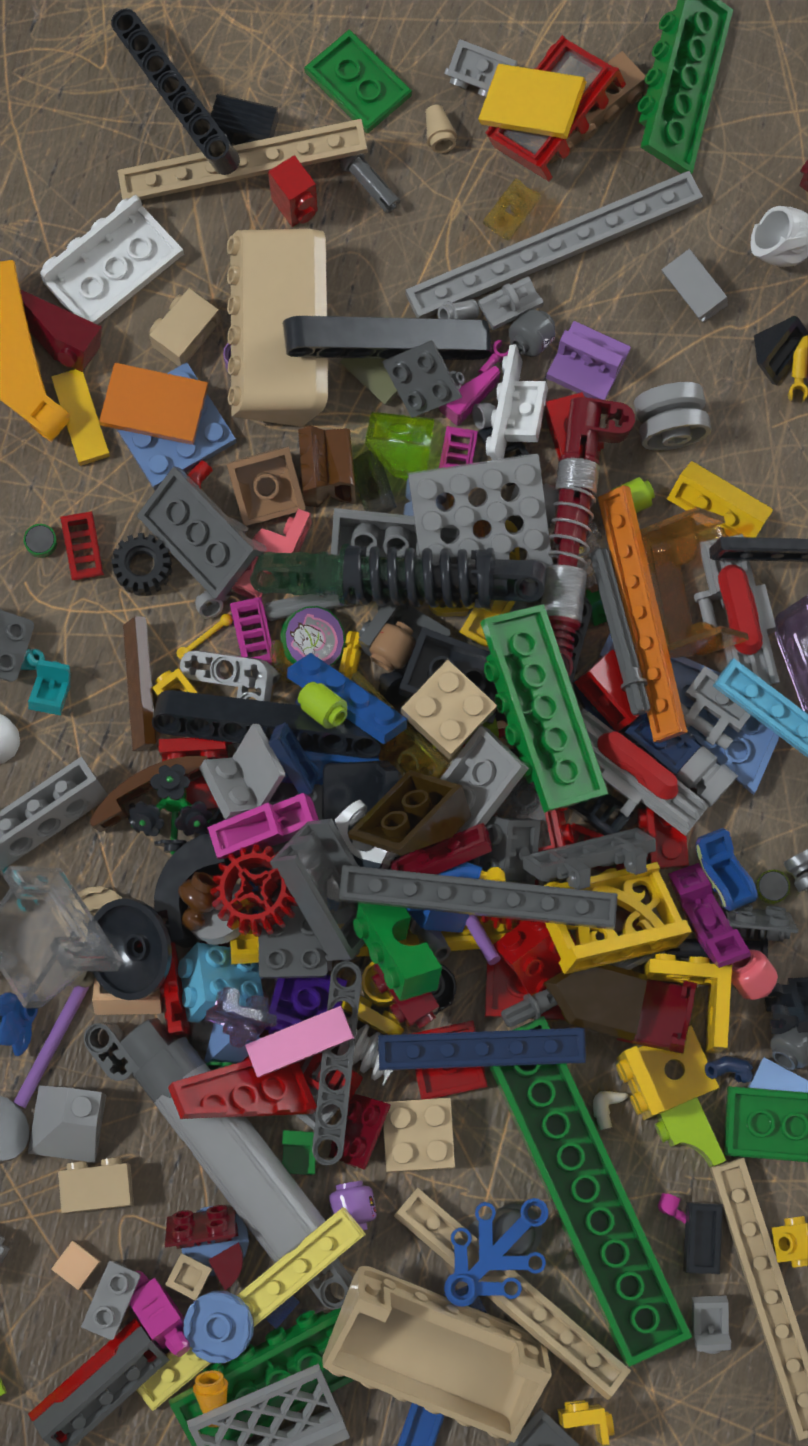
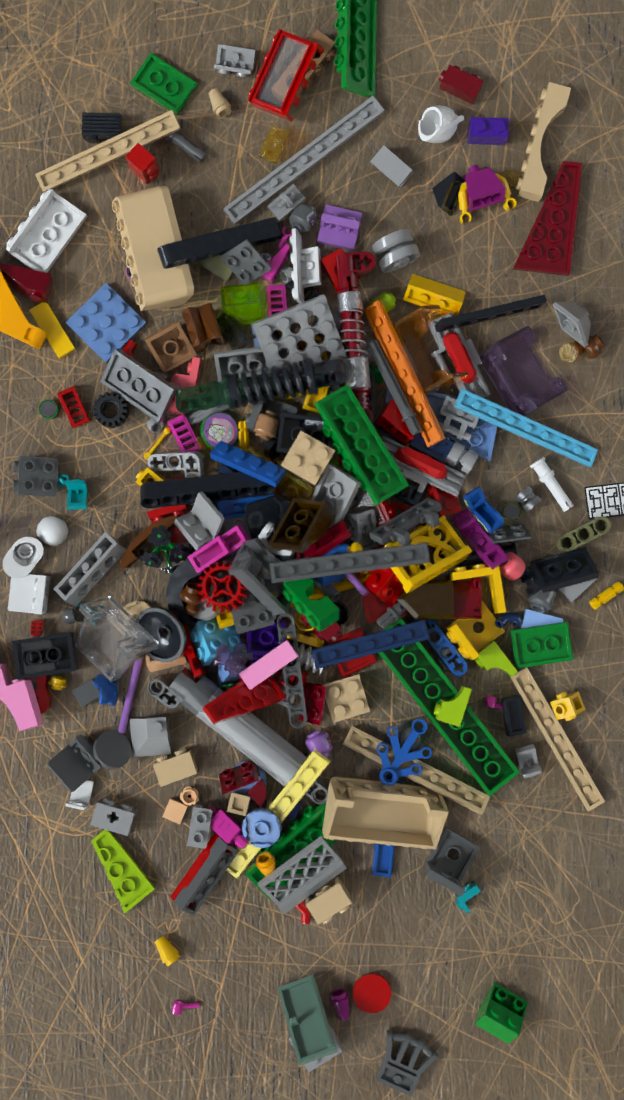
camera: 15 degrees left, 10 degrees up
(97, 1244) = (194, 796): none -> light nougat plate
(139, 683) = (127, 479): reddish brown tile -> none
(153, 403) = (93, 313): orange tile -> none
(175, 91) = (62, 122): black beam -> none
(184, 327) = (99, 262): tan brick -> none
(293, 759) = (226, 507): dark blue plate -> none
(298, 1152) = (281, 722): green panel -> none
(323, 705) = (235, 472): lime brick -> none
(461, 310) = (257, 214): light grey pin -> none
(532, 101) = (271, 74): yellow tile -> none
(579, 1413) = (468, 827): yellow bracket -> none
(598, 1196) = (453, 710): none -> lime arch
(608, 1081) = (442, 643): none -> blue beam

